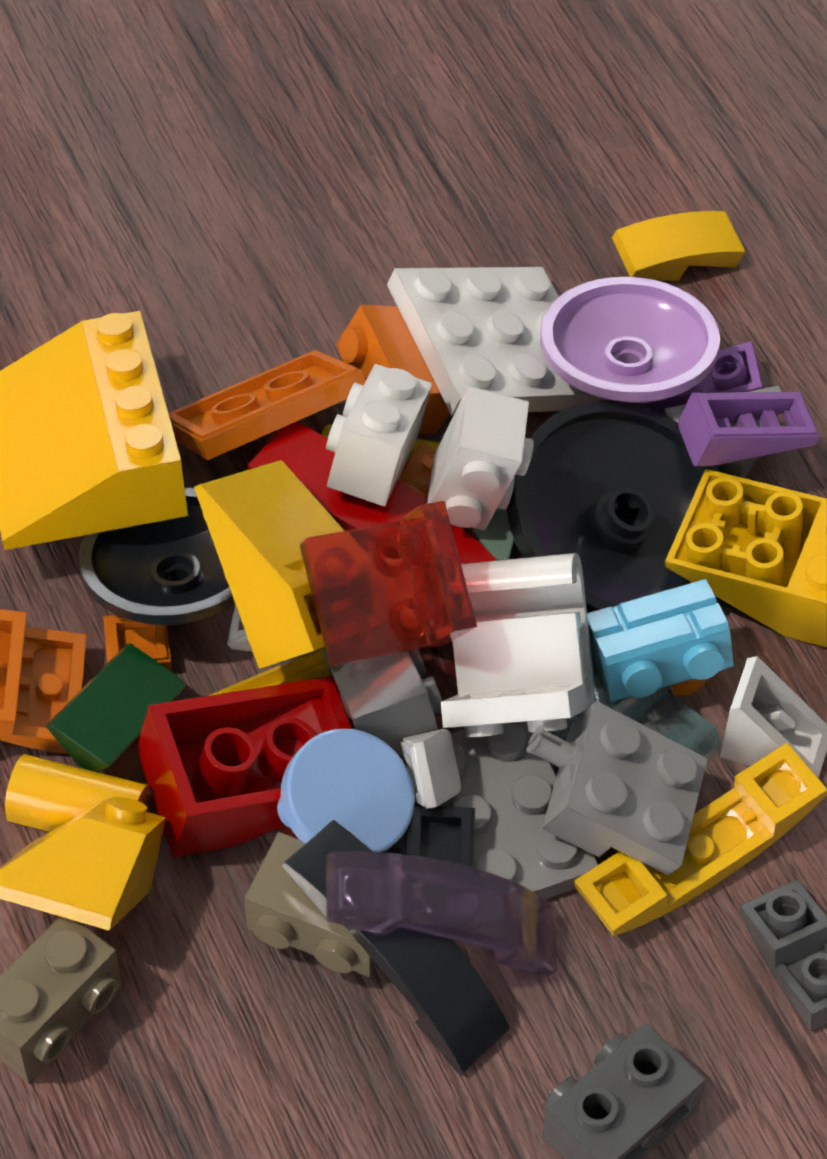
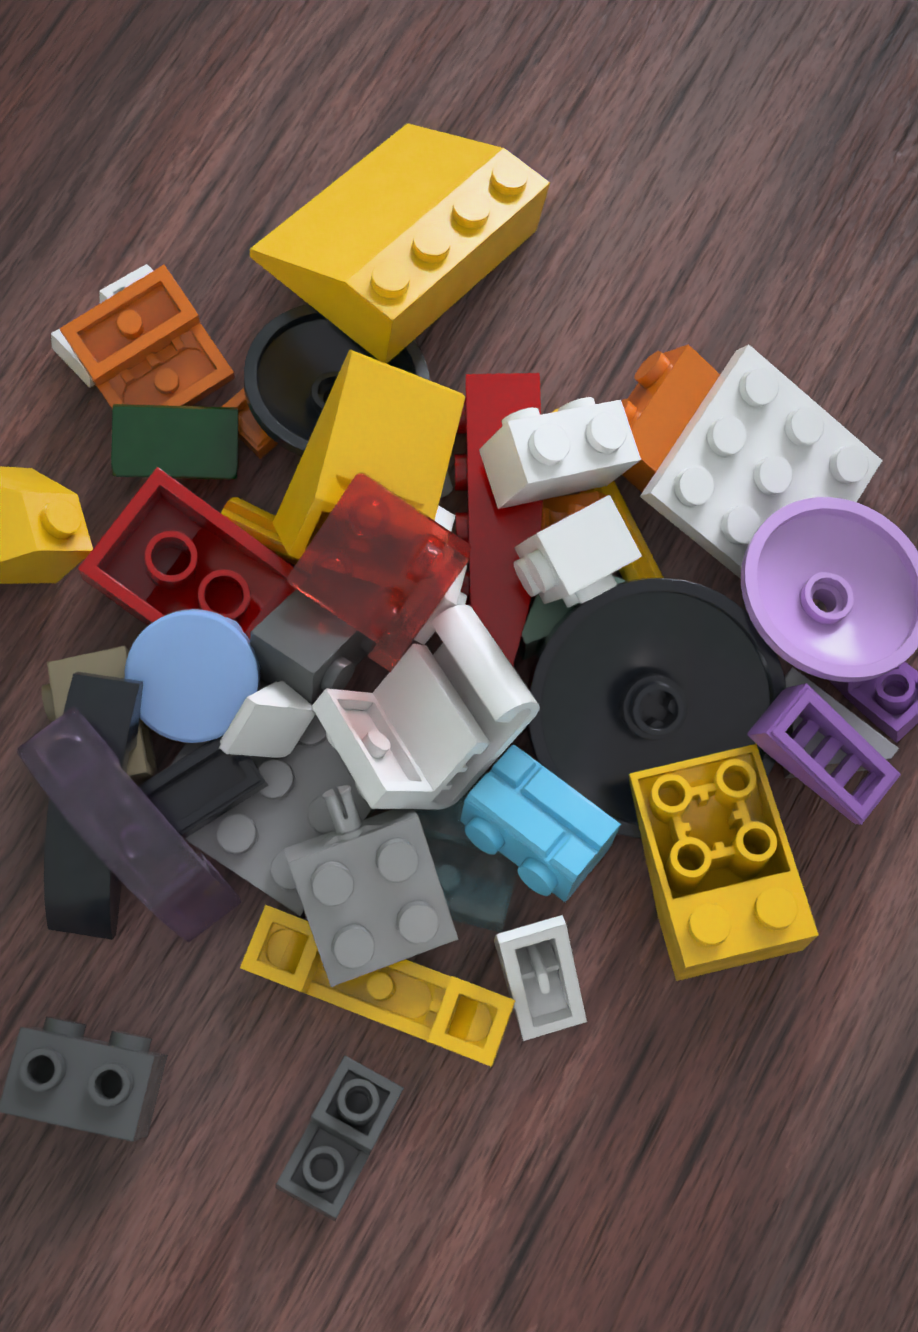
camera: 55 degrees right, 20 degrees up
(51, 793) = (82, 463): yellow brick -> none
(263, 403) = (543, 342): orange tile -> none

